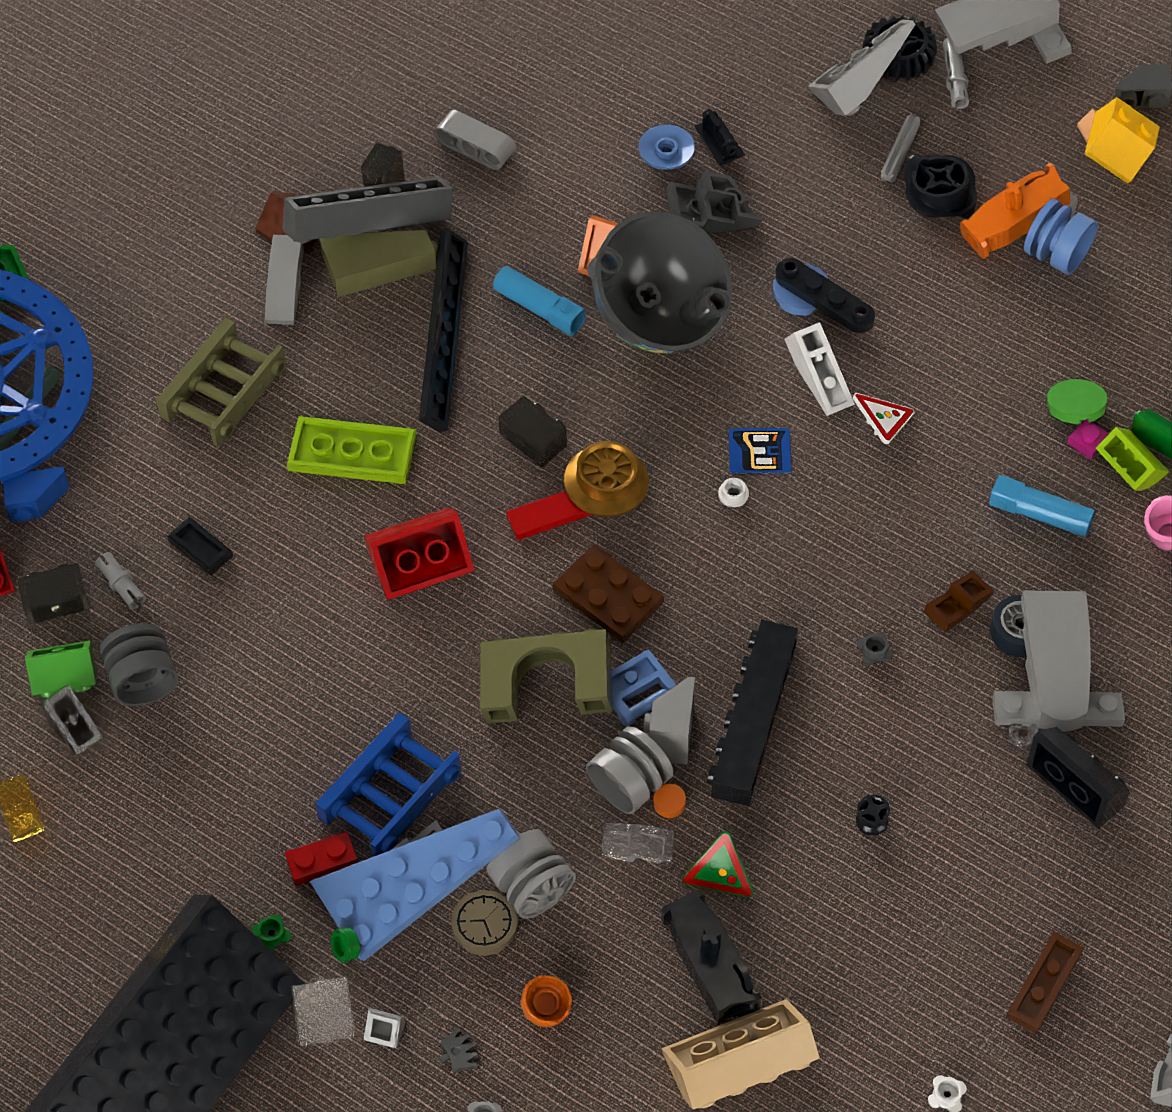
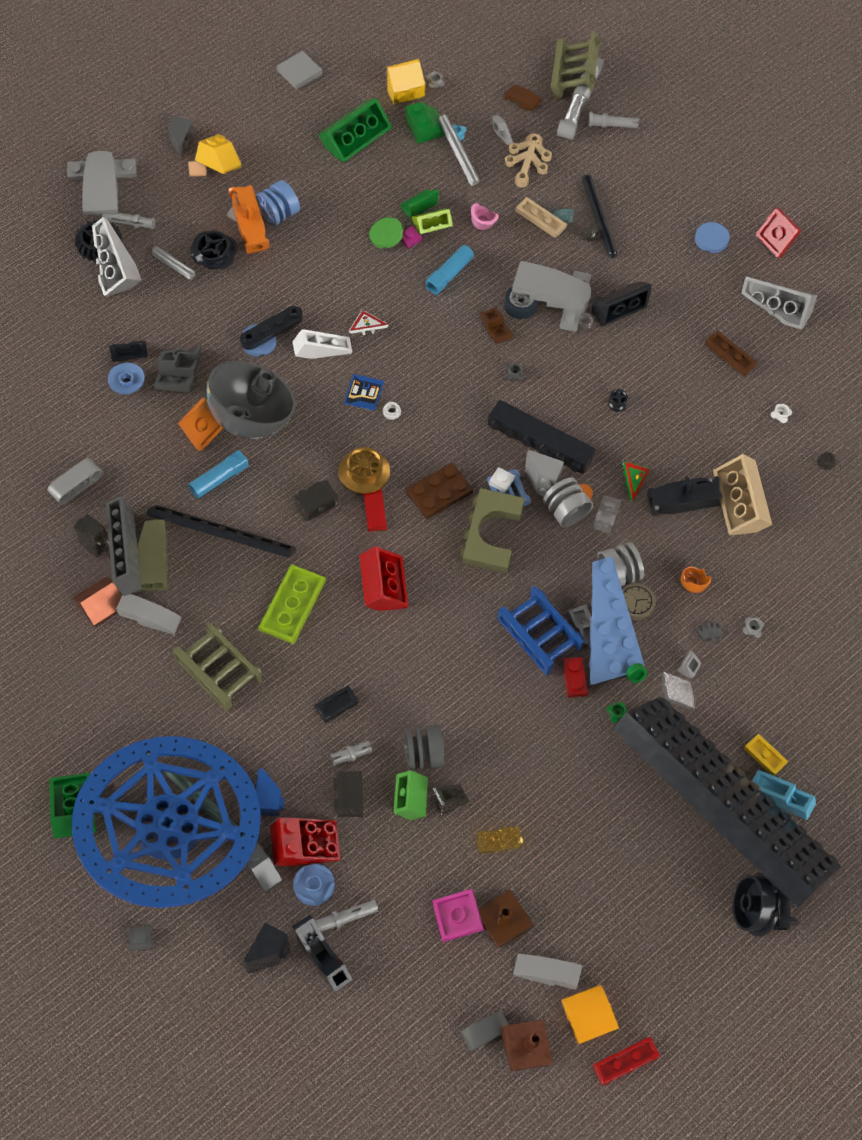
camera: 80 degrees left, 5 degrees up
(645, 667) = (501, 480): none -> white plate

